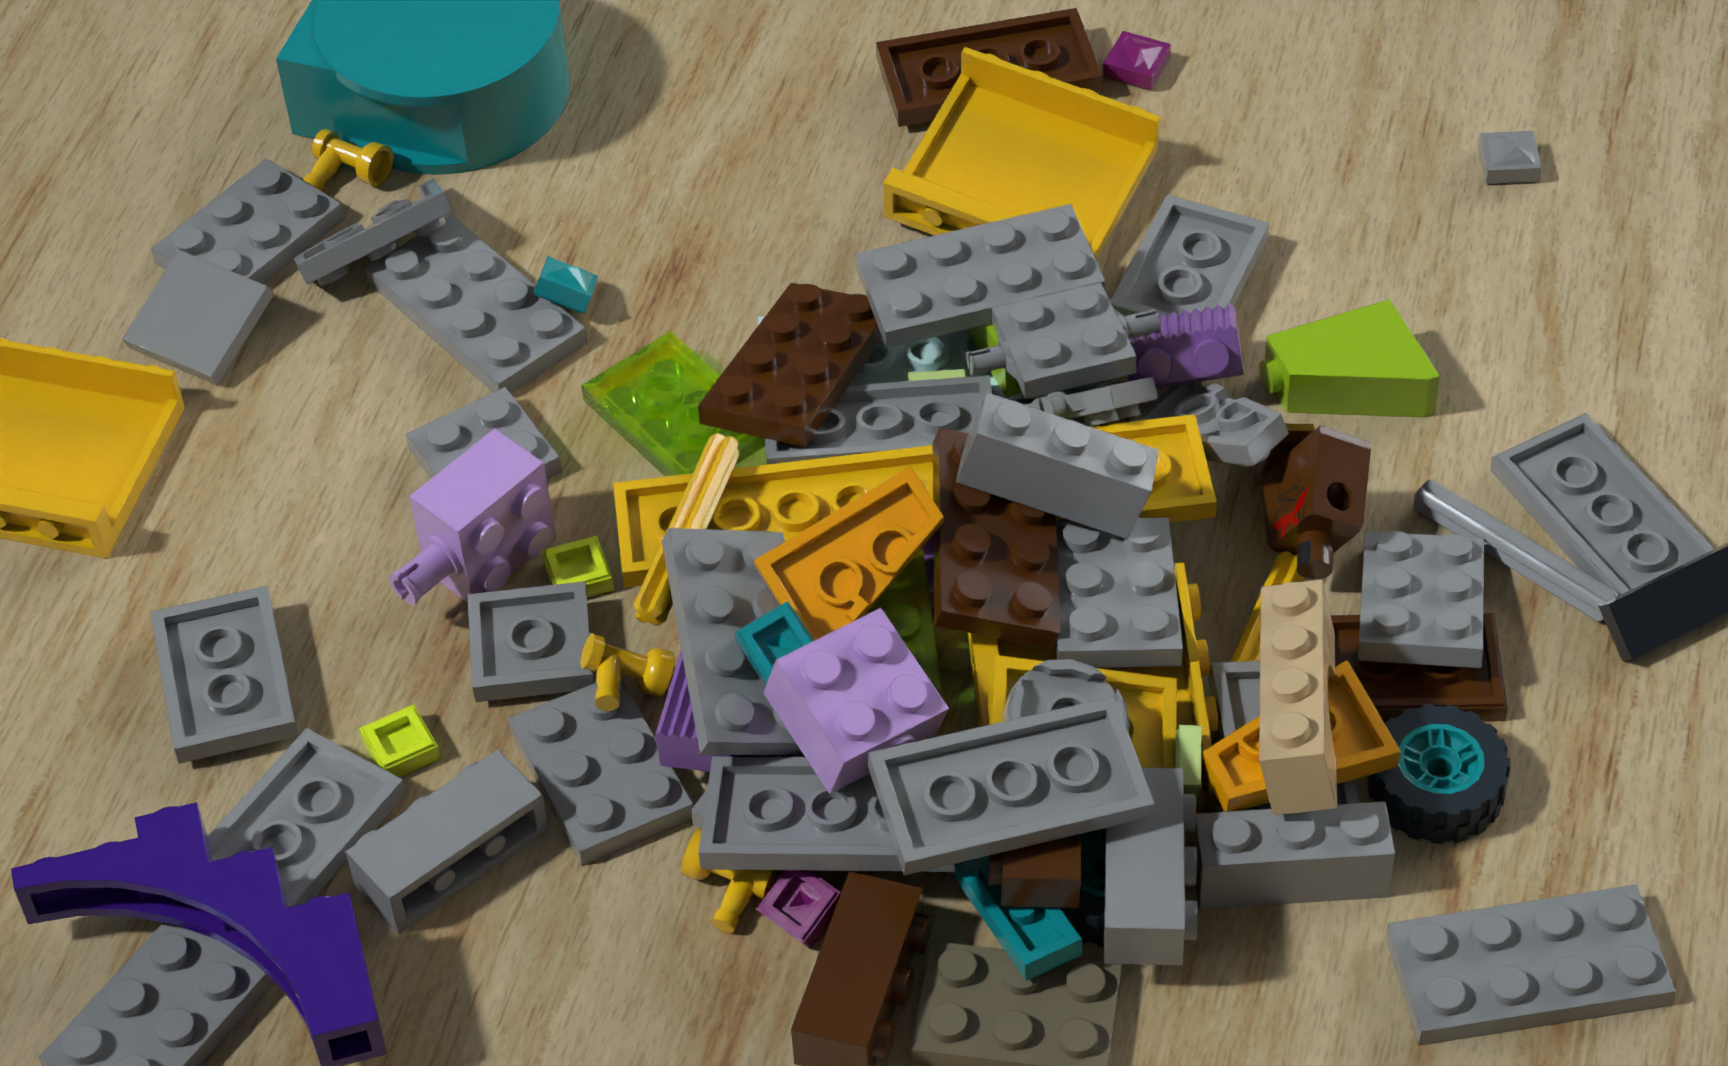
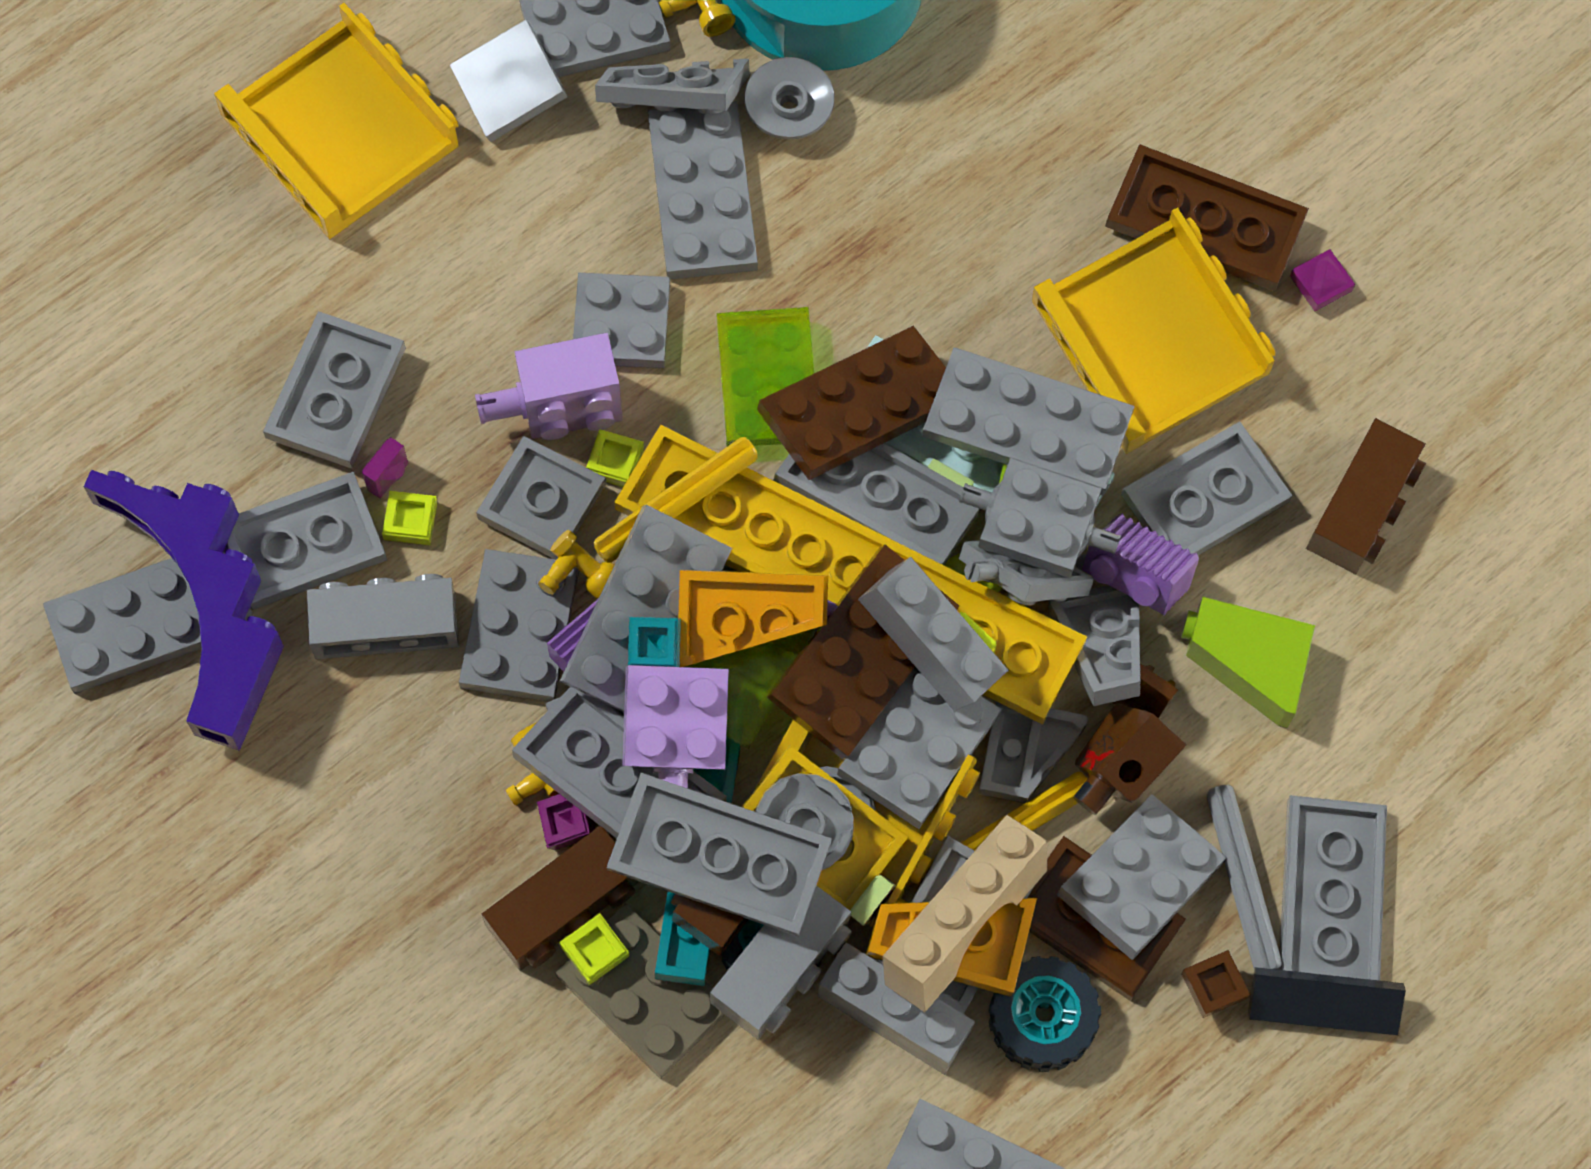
camera: 30 degrees right, 20 degrees up
(338, 706) = (385, 467): none -> magenta tile
(503, 182) = (789, 81): none -> light grey dish
(565, 285) = (768, 217): teal tile -> none
(938, 992) = (594, 949): none -> neon yellow tile
(1220, 562) = (1025, 751): none -> light grey wing
(1337, 189) = (1368, 497): none -> reddish brown brick
(1509, 157) = (1523, 550): light grey tile -> none
(1576, 642) = (1215, 984): none -> reddish brown tile

